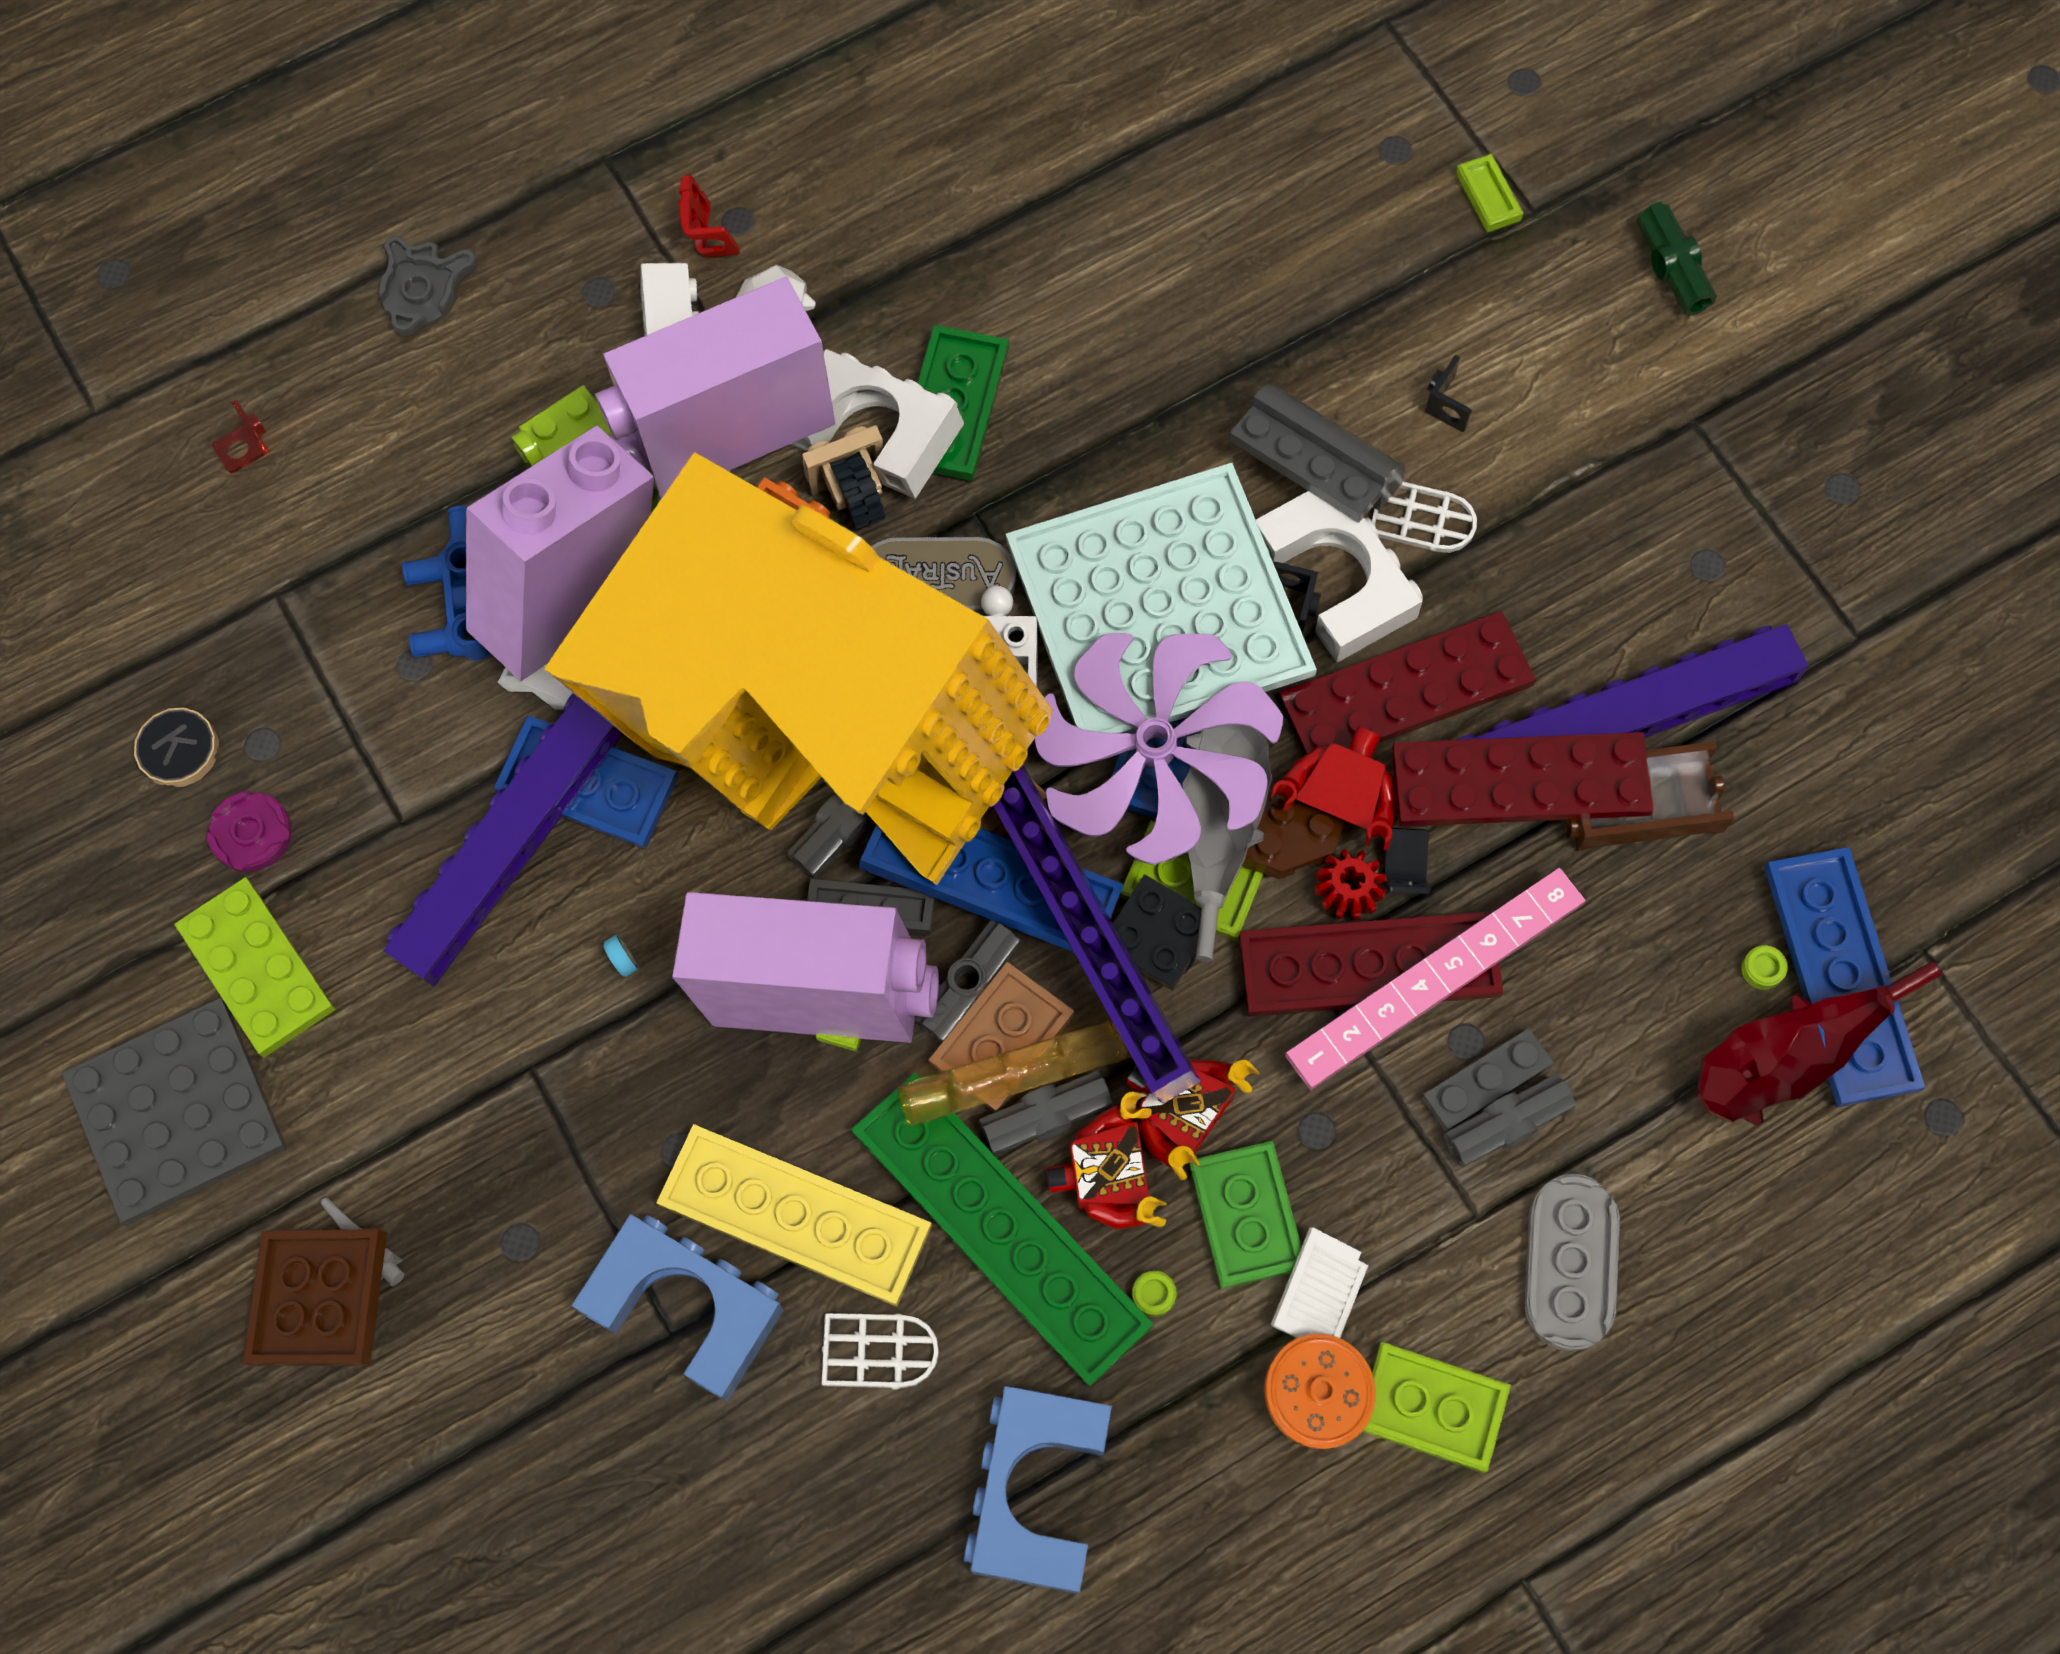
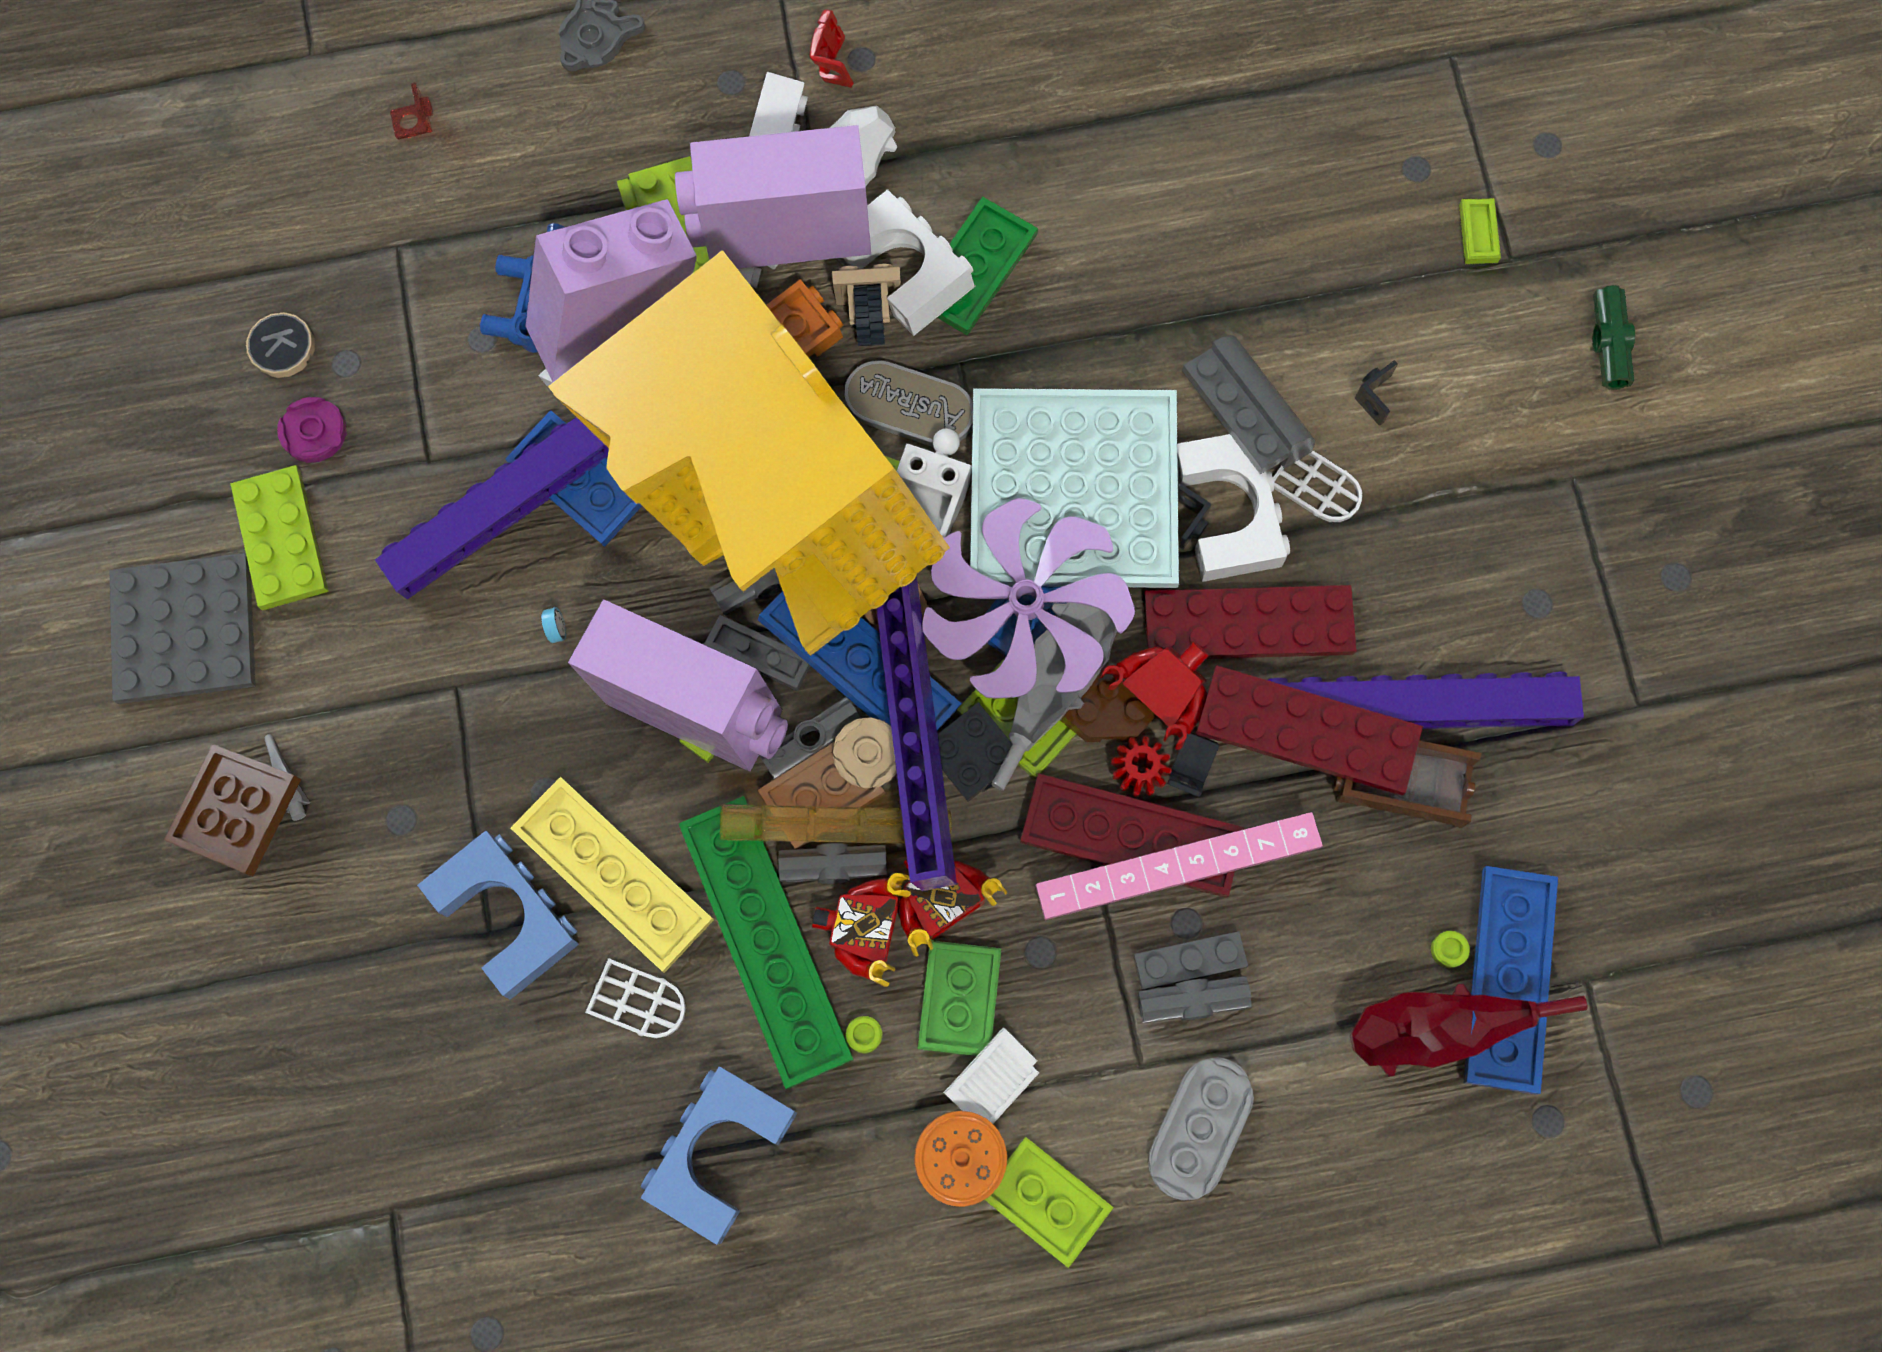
camera: 20 degrees right, 5 degrees up
(1040, 973) = (865, 753): none -> tan tile

